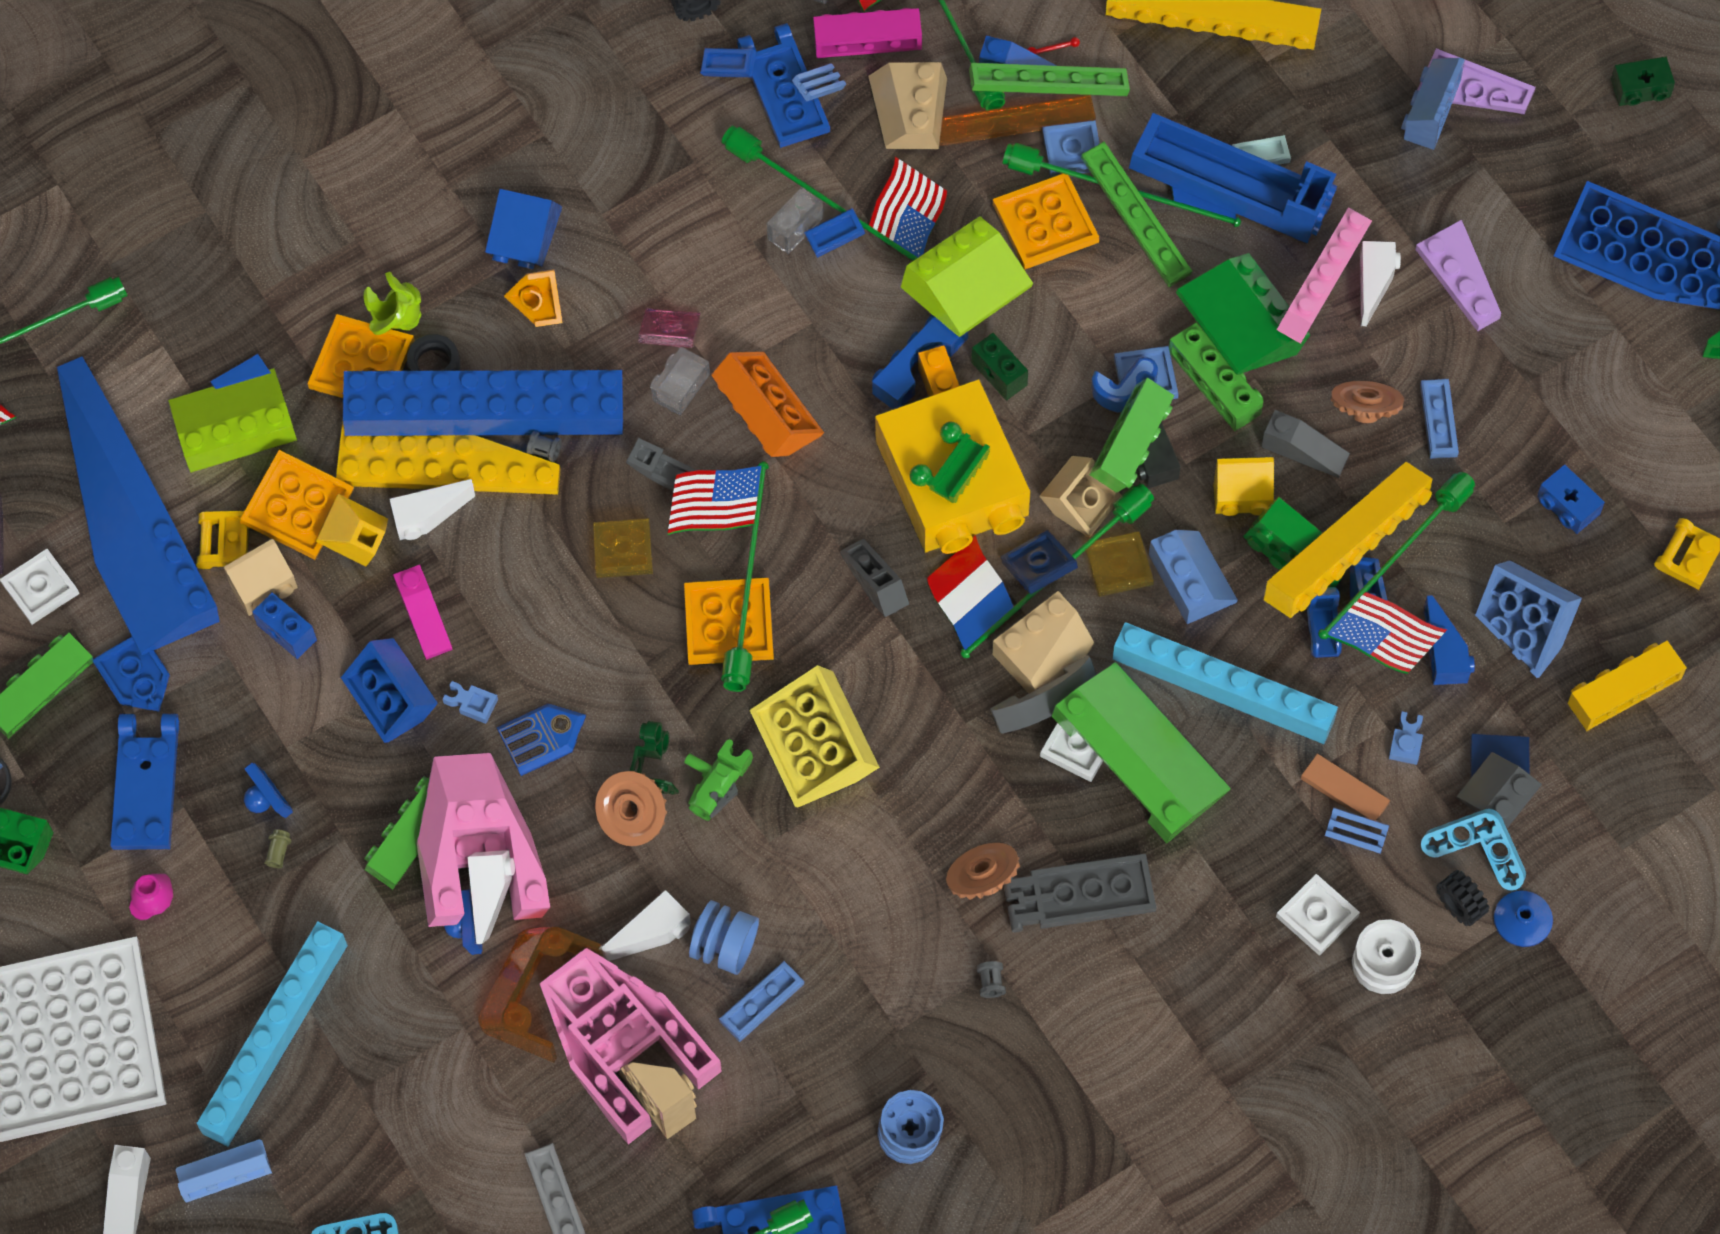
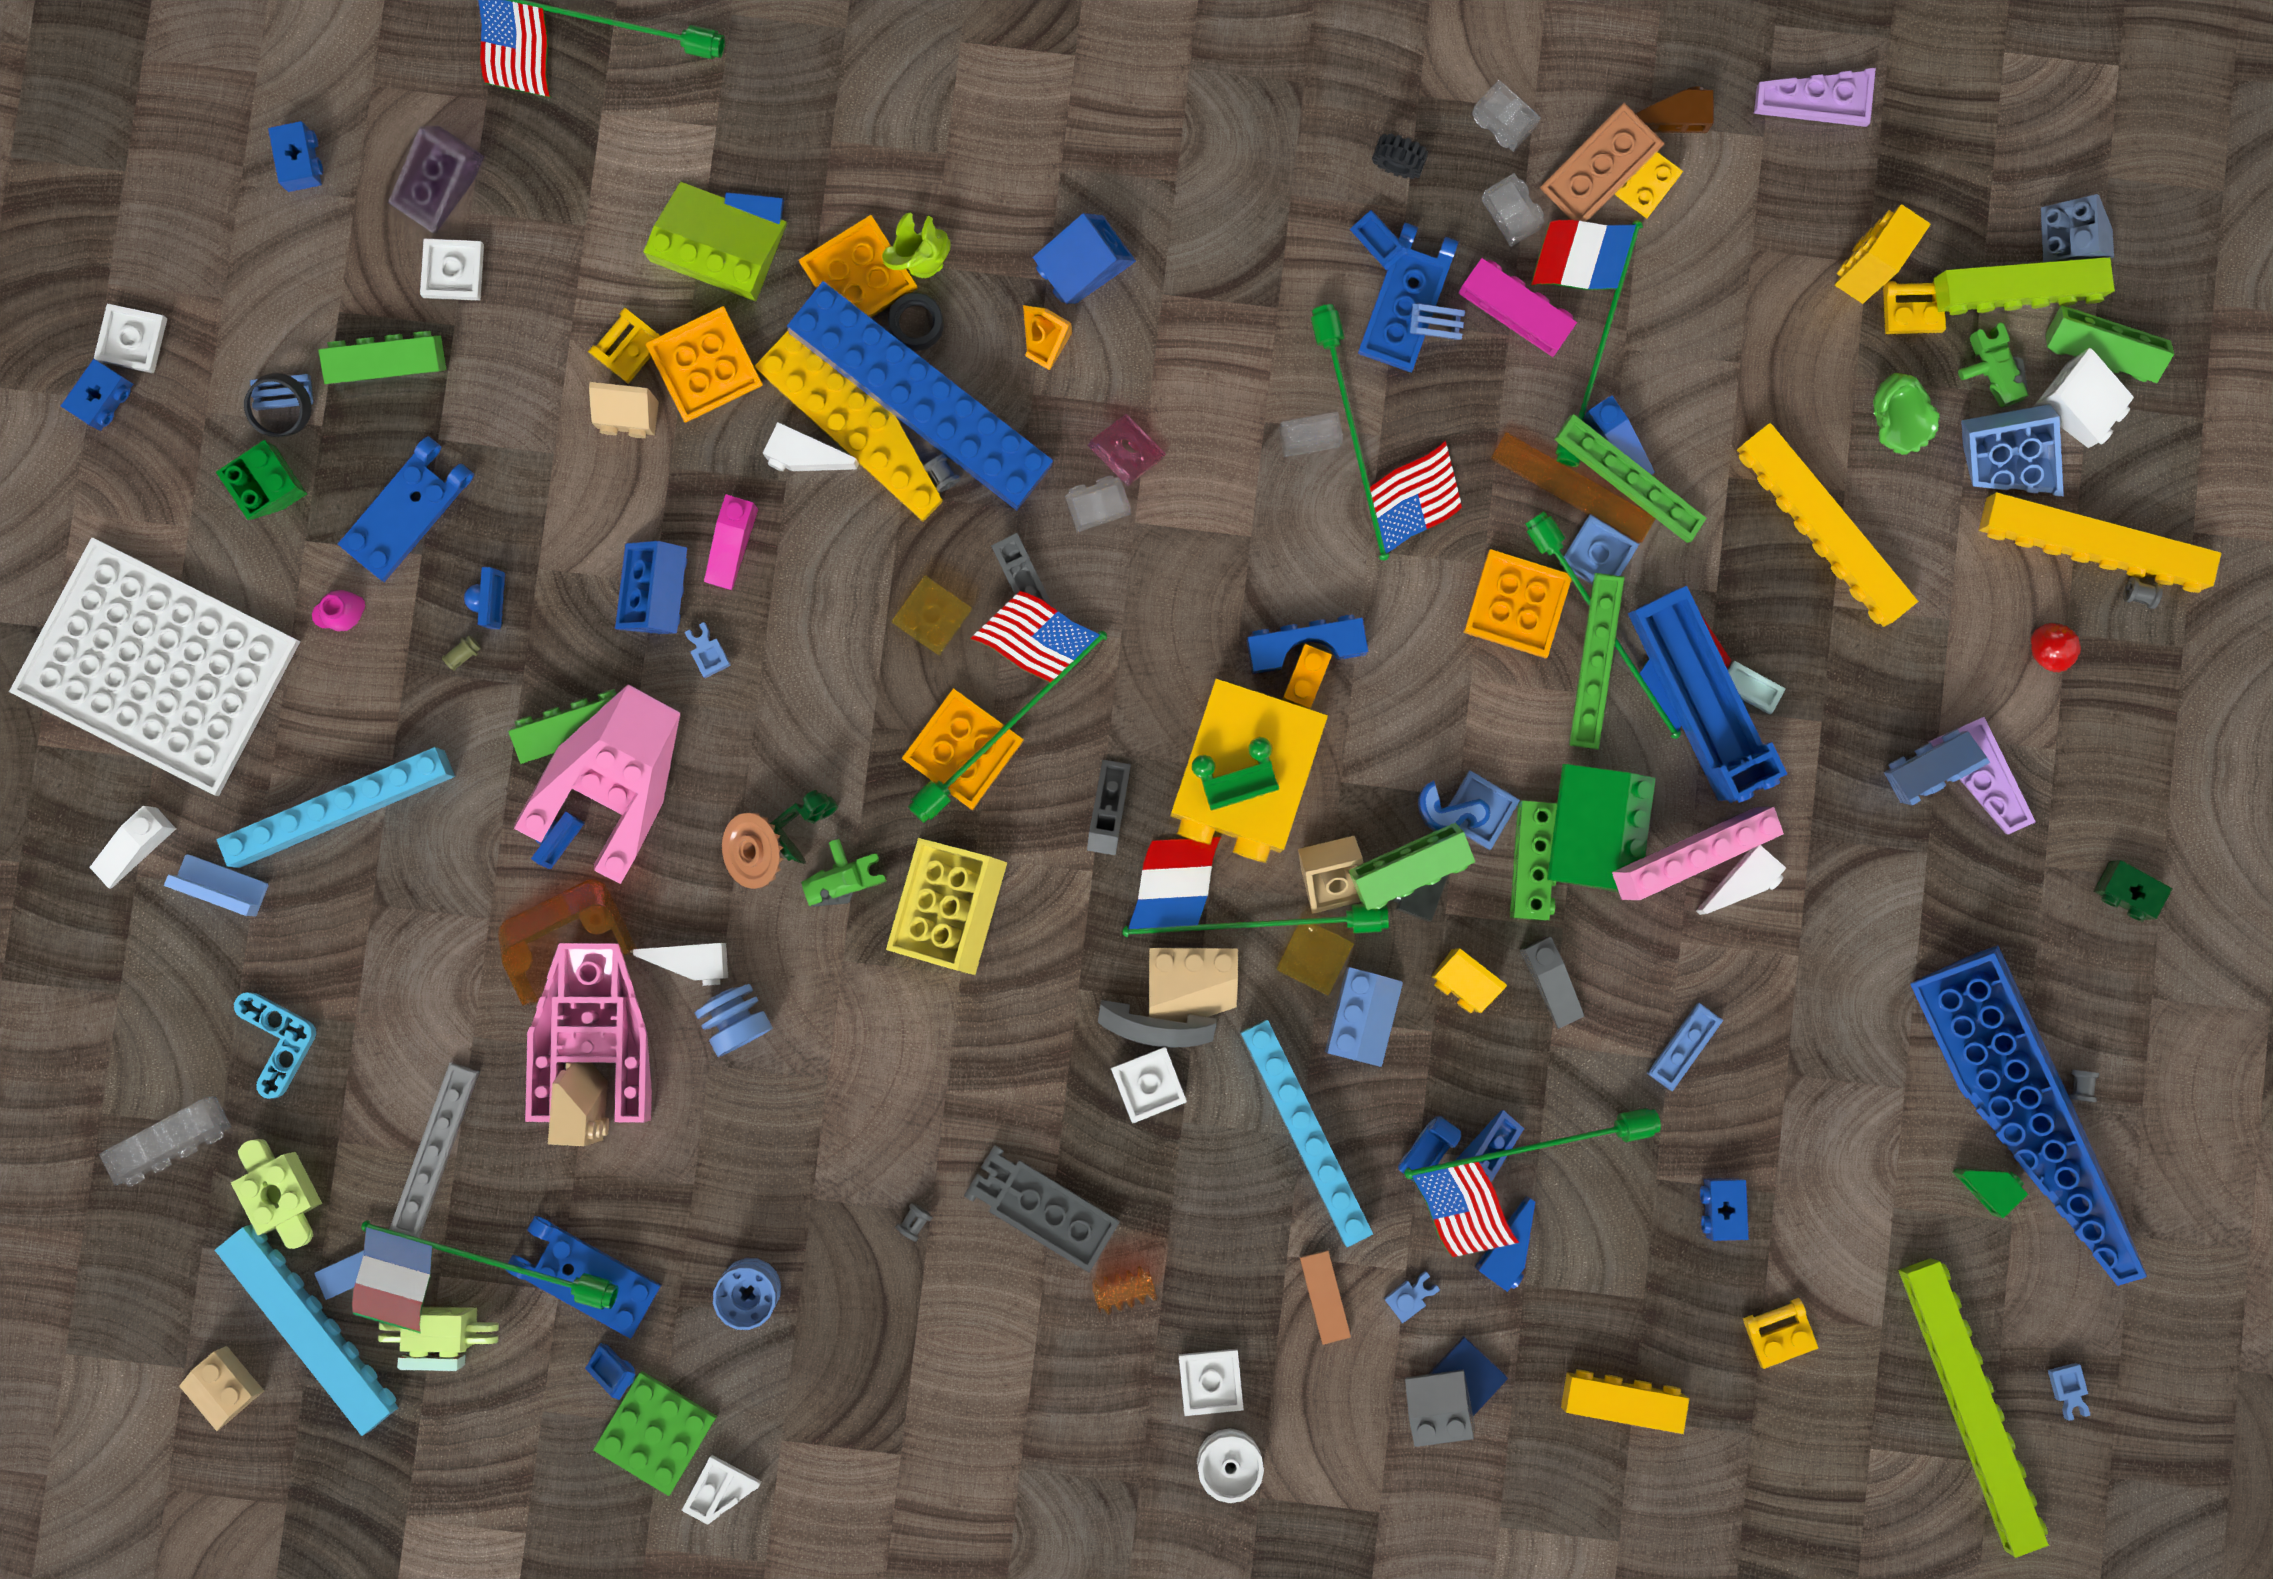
camera: 35 degrees right, 20 degrees up
(129, 525) = (562, 271): blue wedge -> none
(133, 678) = (469, 407): blue tile -> none
(284, 625) = (612, 464): blue brick -> none
(352, 530) = (731, 424): yellow slope -> none
(489, 883) = (587, 825): white slope -> none
(541, 736) = (739, 724): blue tile -> none
(761, 1001) = (727, 1089): medium blue tile -> none
(766, 403) = (1151, 582): orange slope -> none
(834, 233) = (1335, 471): blue tile -> none
(910, 103) = (1495, 404): tan wedge -> none
(966, 277) = (1404, 607): lime slope -> none
(982, 870) = (976, 1118): nougat gear -> none
(999, 366) = (1365, 706): dark green brick -> none
(1039, 562) = (1249, 905): dark blue tile -> none
(1074, 42) = (1643, 435): red hinge -> none
(1142, 750) = (1190, 1135): bright green slope -> none
(1190, 899) = (1124, 1290): none -> clear orange piece
(1282, 534) = (1460, 1065): green brick -> none
(1348, 540) = (1507, 1103): yellow brick -> none
(1367, 400) = (1638, 987): nougat gear -> none
(1380, 837) = (1299, 1343): medium blue tile -> none
(1459, 271) = (1820, 929): lavender wing -> none
(1462, 898) = (1331, 1470): black tyre -> none
(1487, 837) = (1397, 1431): medium azure beam -> none
(1517, 929) = (1366, 1502): blue dish -> none
(1527, 614) = (1600, 1277): medium blue wedge -> none

